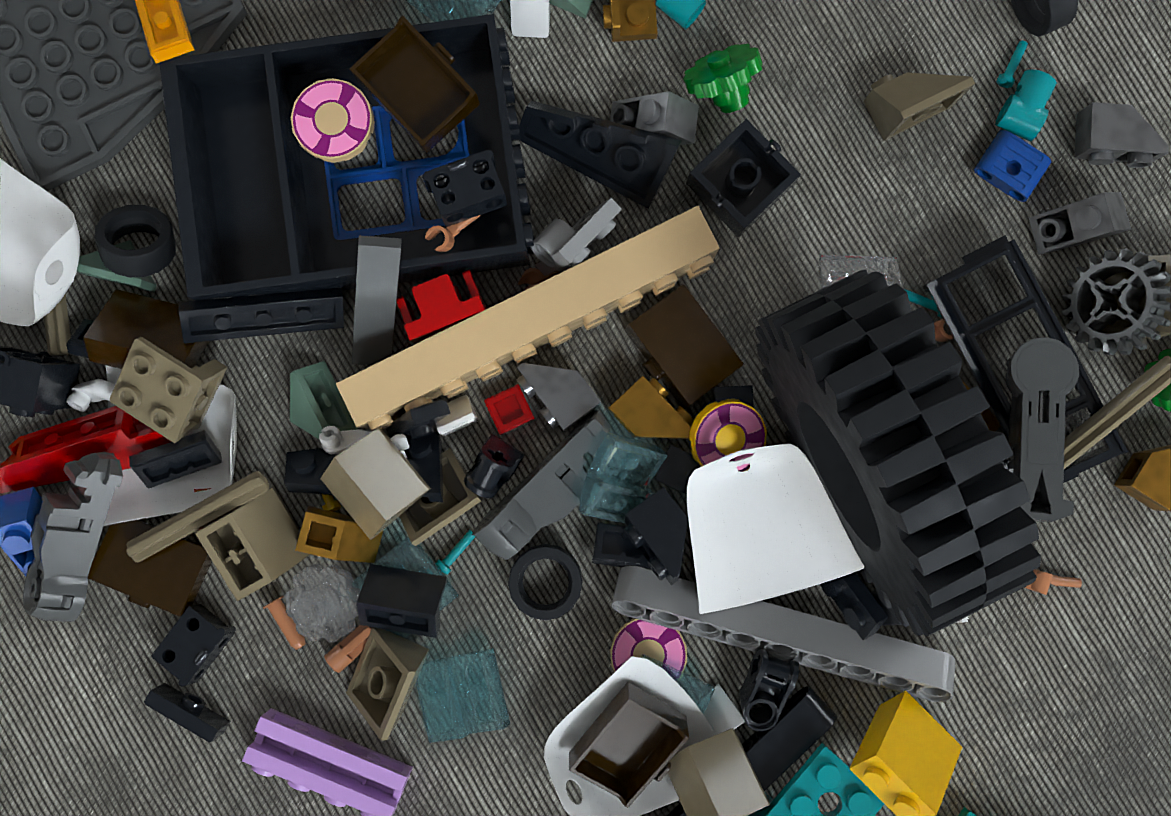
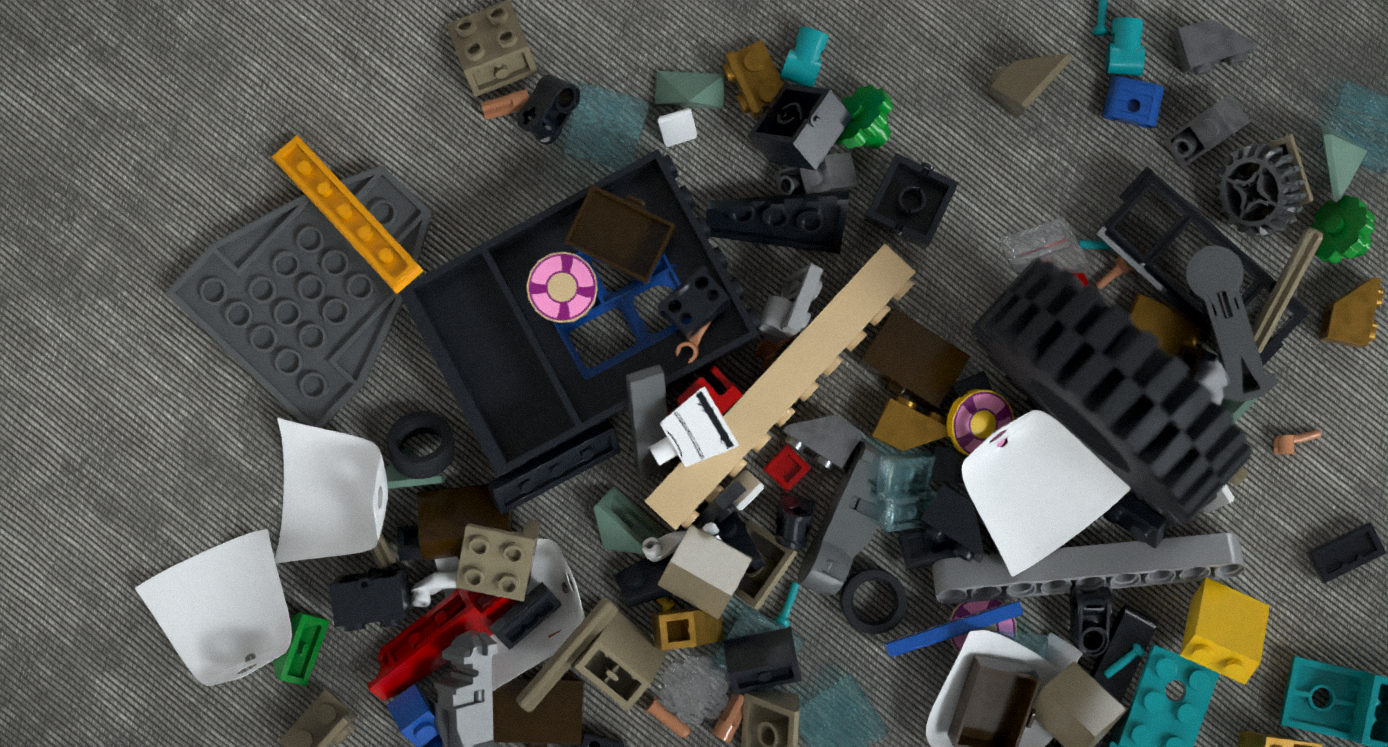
camera: 25 degrees left, 0 degrees up
(413, 327) = (694, 432): none -> white torso
(617, 643) = (953, 628): none -> blue tile
(657, 54) = (800, 126): none -> black brick
(803, 743) = (1118, 665): none -> teal piece
(1063, 720) = (1346, 552): none -> black plate

